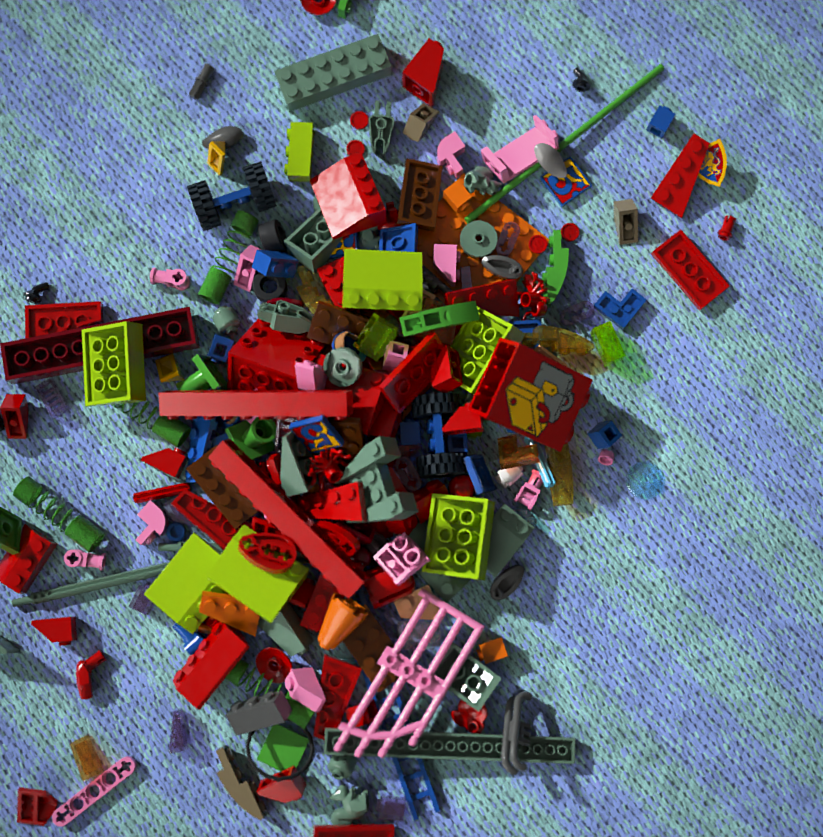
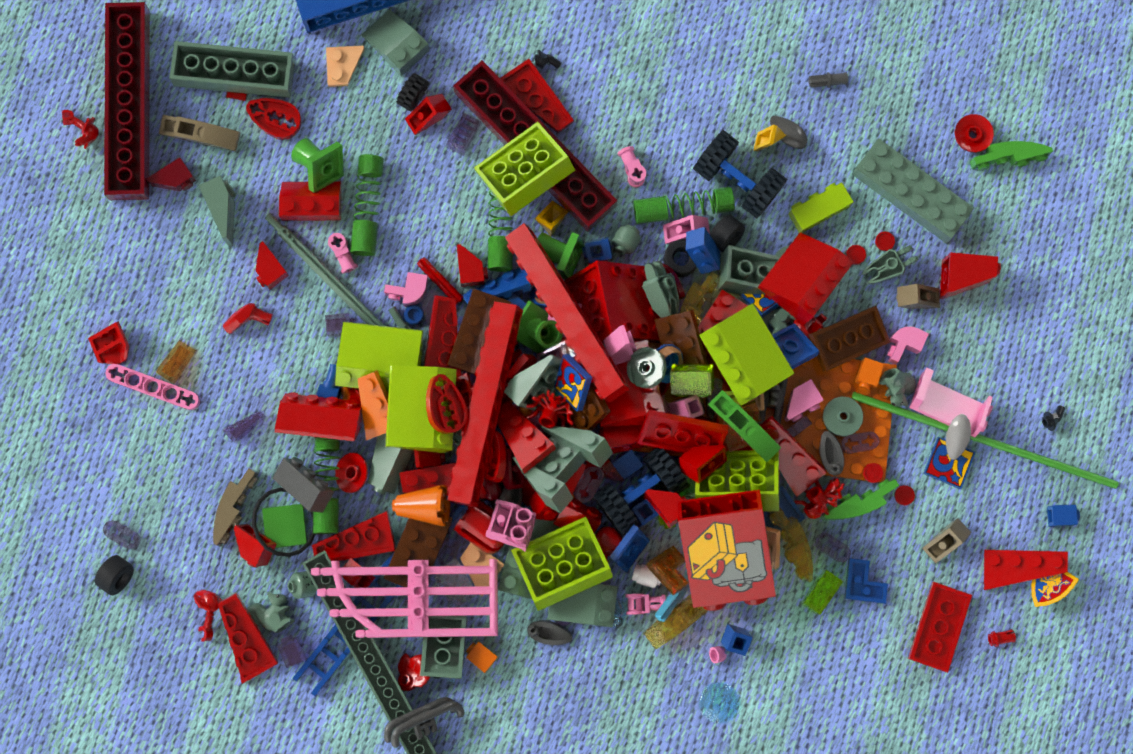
camera: 50 degrees right, 0 degrees up
(305, 688) = (348, 512): bright pink slope -> none

